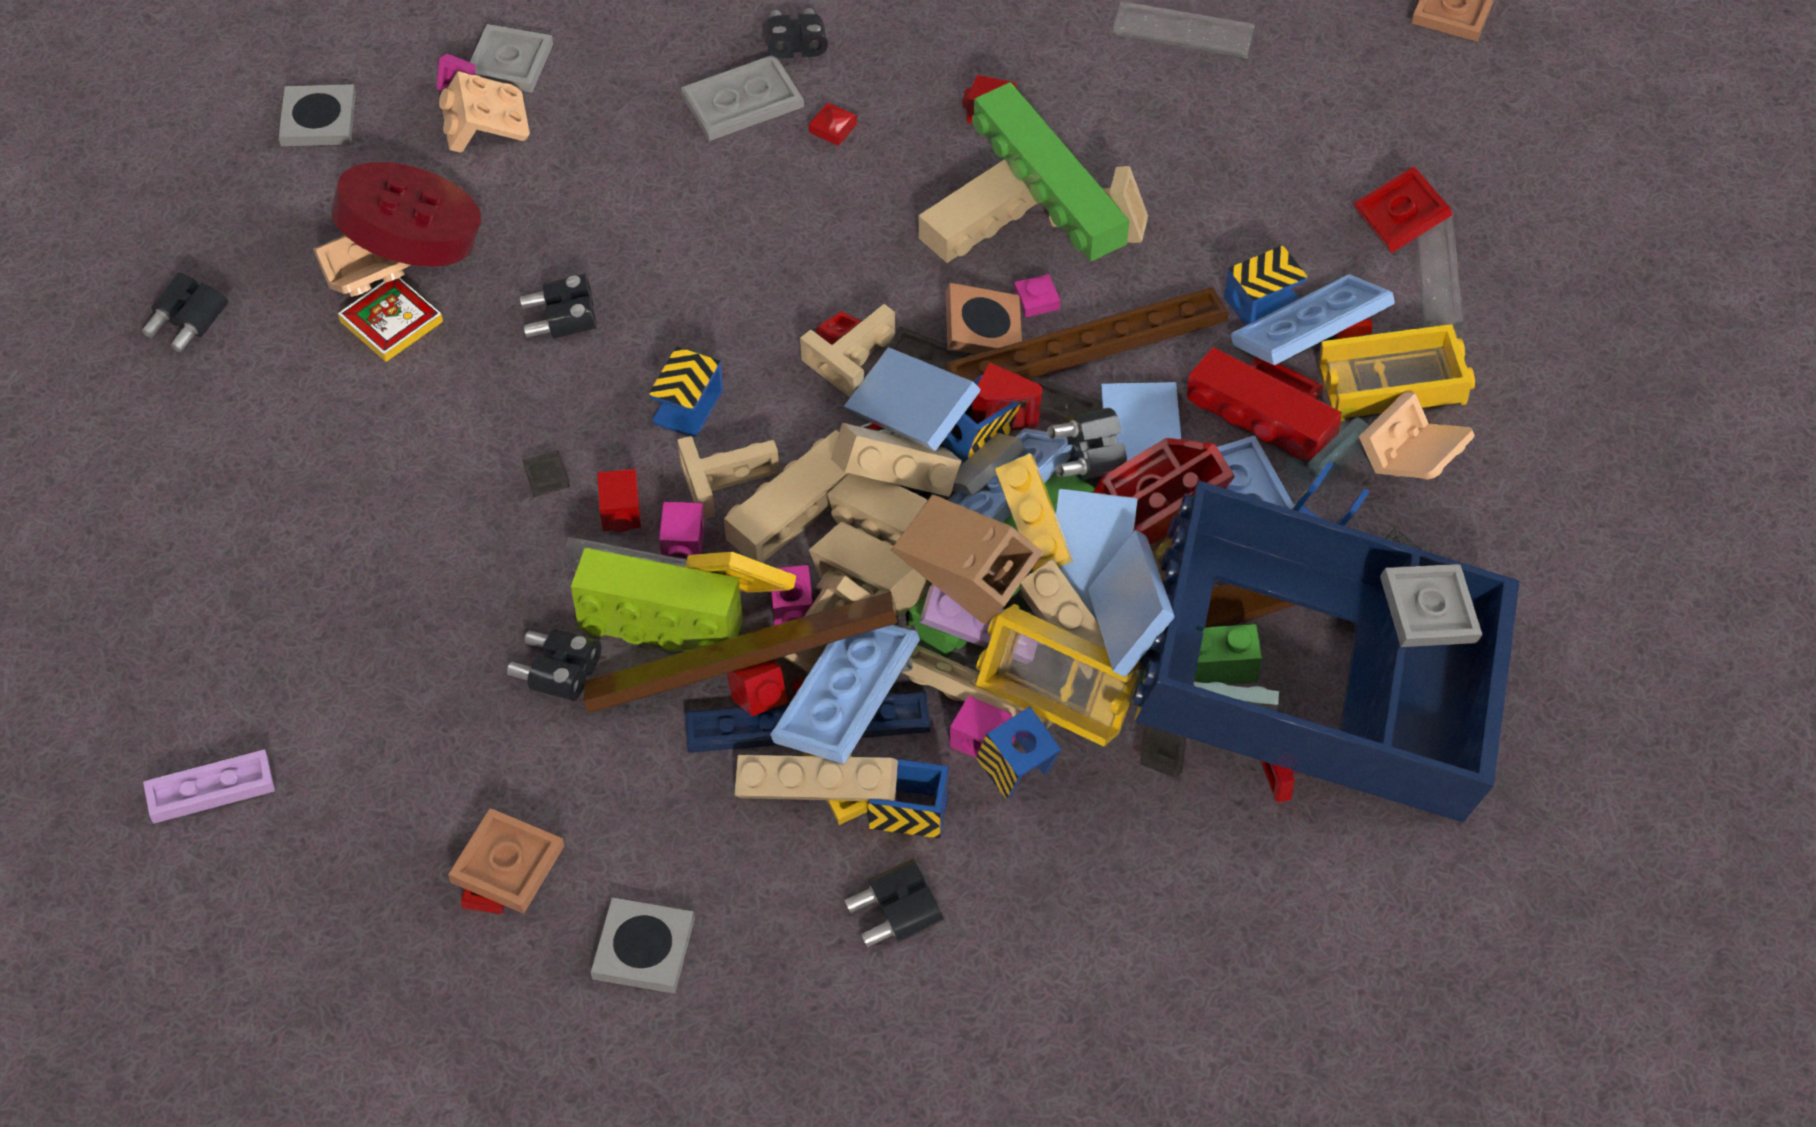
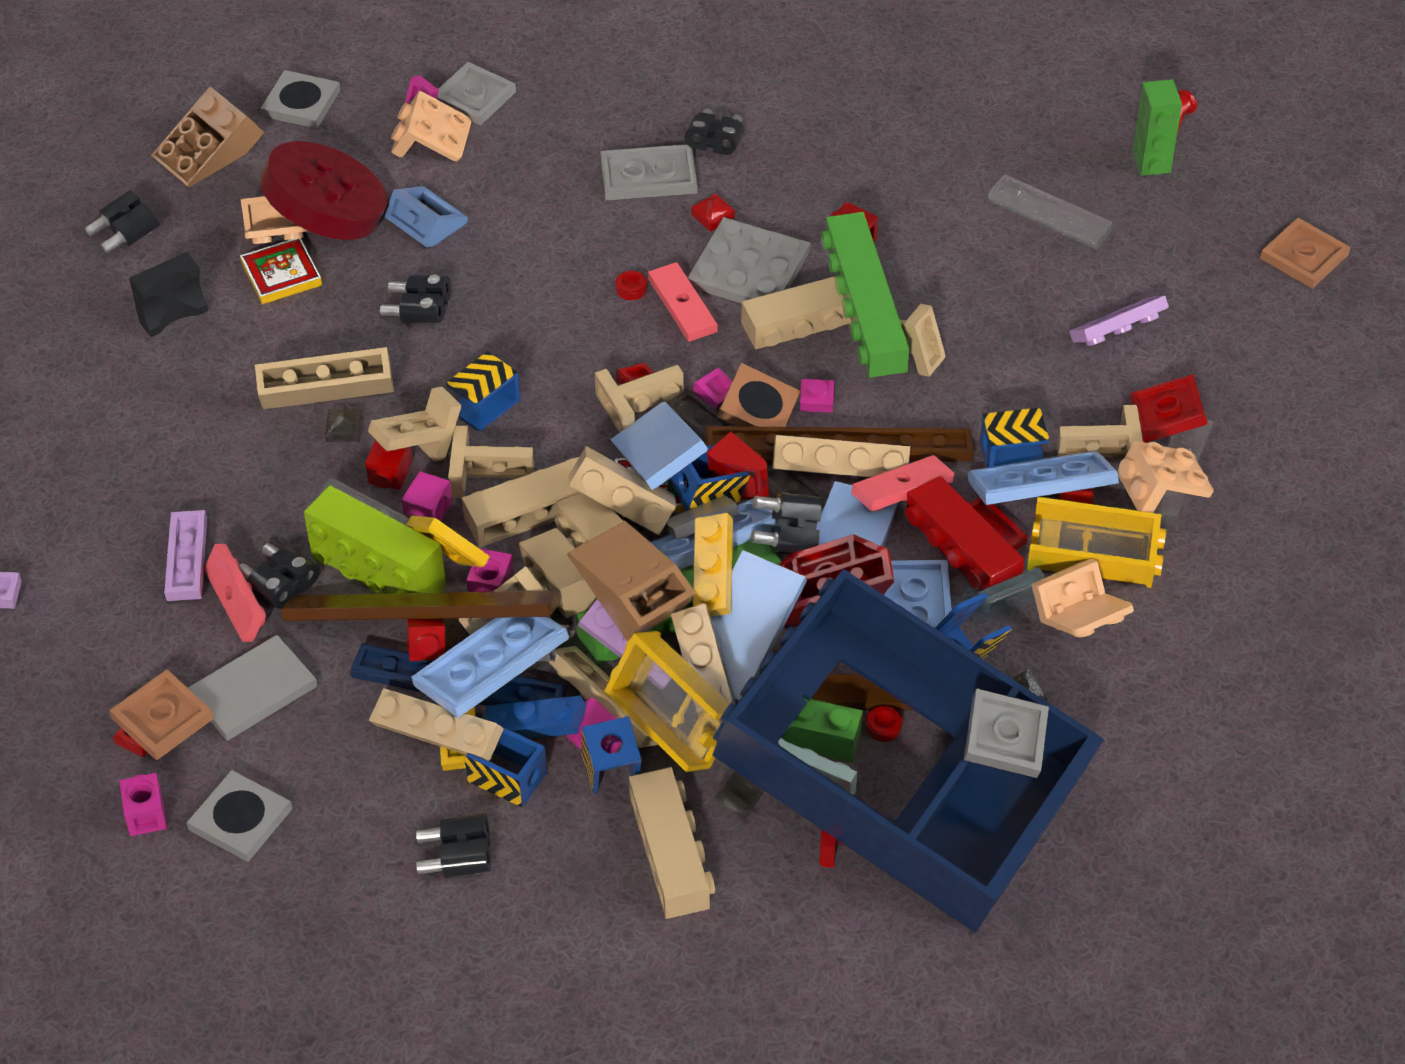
camera: 20 degrees right, 5 degrees down
(235, 189) = (207, 139): none -> medium nougat slope
(283, 379) = (168, 293): none -> black brick
(443, 672) = (186, 555): none -> lavender plate
(506, 427) = (324, 378): none -> tan brick
(518, 217) = (419, 220): none -> medium blue tile
(519, 698) = (234, 592): none -> coral tile
(540, 981) = (143, 816): none -> dark pink brick
(589, 796) = (253, 686): none -> light grey tile
(648, 453) = (427, 429): none -> tan bracket
(783, 228) = (631, 285): none -> red tile
(849, 232) = (682, 302): none -> coral tile
(896, 170) = (747, 262): none -> light grey plate
(922, 735) = (539, 717): none -> blue plate
(929, 318) = (713, 388): none -> dark pink plate
(1099, 356) = (837, 456): none -> tan plate
(1118, 827) = (670, 843): none -> tan brick
(1130, 603) = (748, 656): light blue tile -> none
(1171, 368) = (894, 484): none -> coral tile
(1273, 629) = (884, 723): none -> red tile
(1308, 128) = (1119, 320): none -> lavender plate
(1369, 255) = (1106, 439): none -> tan bracket
(1429, 279) = (1153, 469): none -> light nougat bracket

